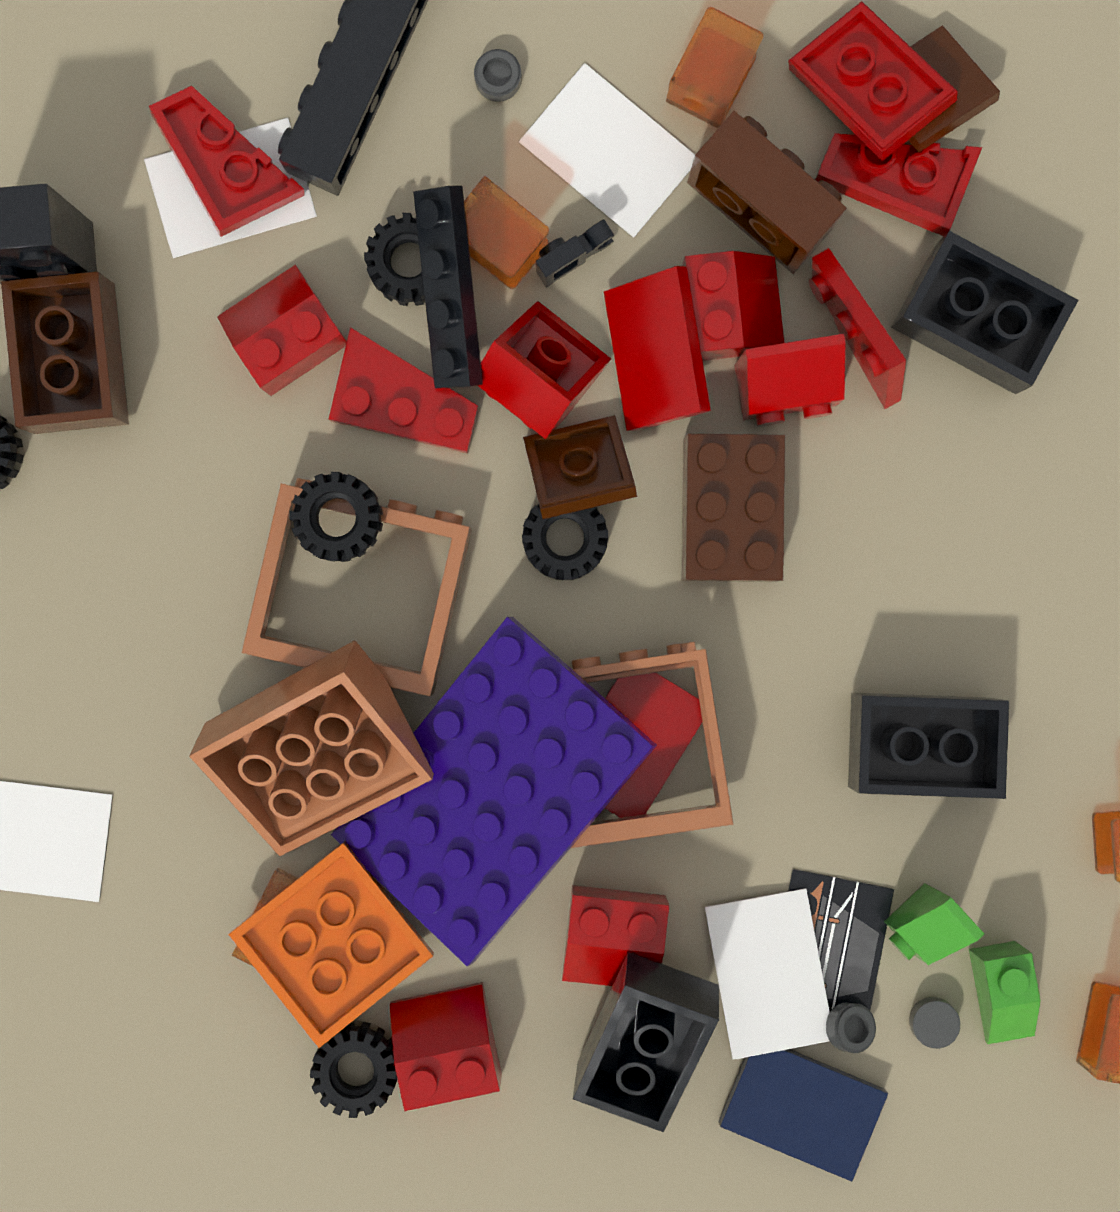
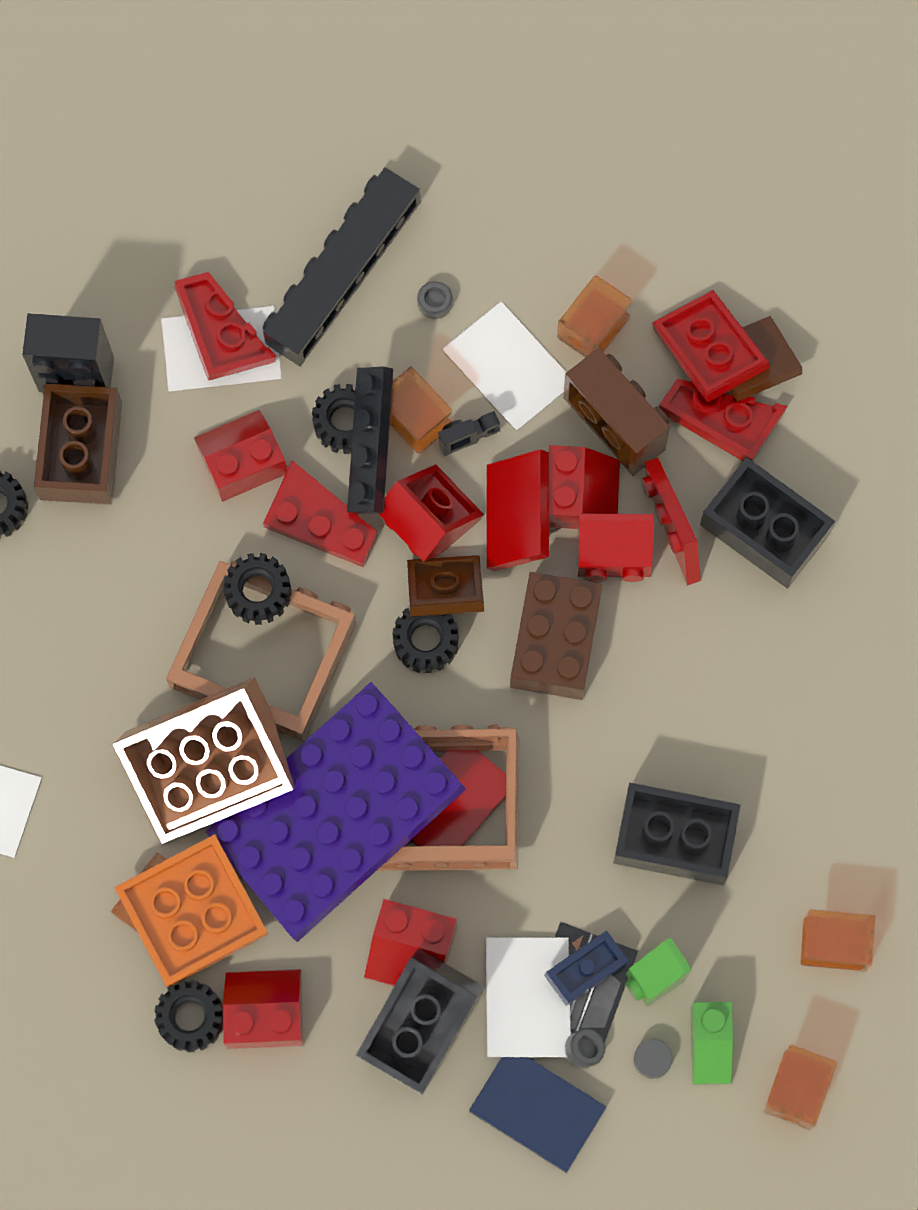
camera: 10 degrees right, 15 degrees down
(838, 930) = (586, 968): none -> dark blue plate

